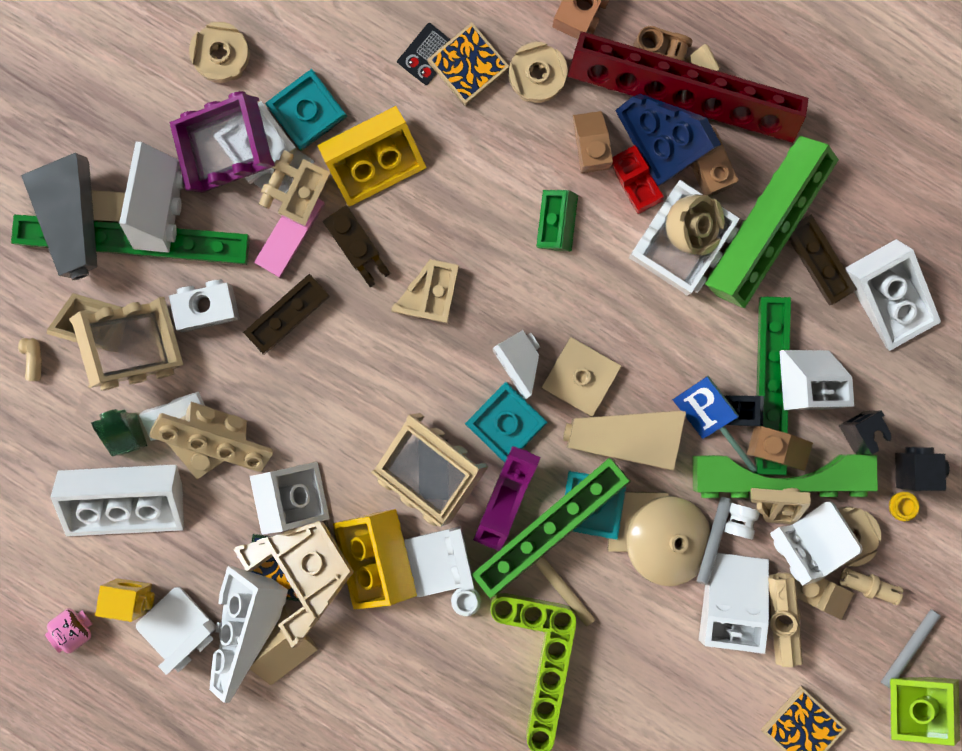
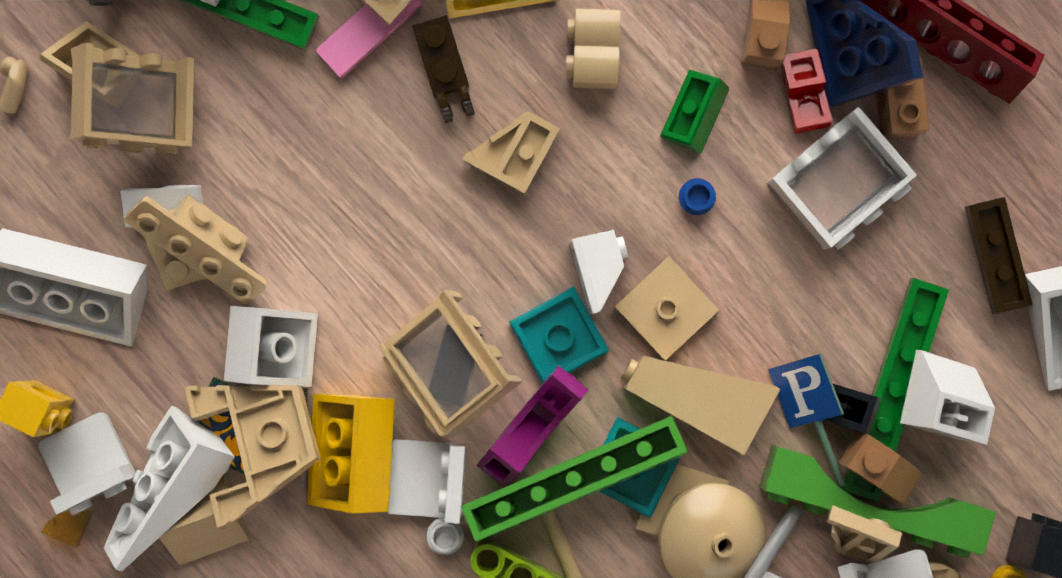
camera: 10 degrees right, 0 degrees up
(120, 432) = (91, 204): clear green slope -> none
(177, 683) = (68, 527): none -> clear yellow tile
(221, 310) = (257, 97): white brick -> none
(286, 314) = (334, 124): dark brown plate -> none
(466, 195) = (595, 48): none -> tan brick
(578, 285) = (697, 196): none -> blue plate
(695, 224) = (861, 165): tan cylinder -> none
(742, 514) = (811, 533): white wheel -> none
(772, 221) = (955, 190): bright green brick -> none
(860, 431) = (985, 476): black hinge -> none

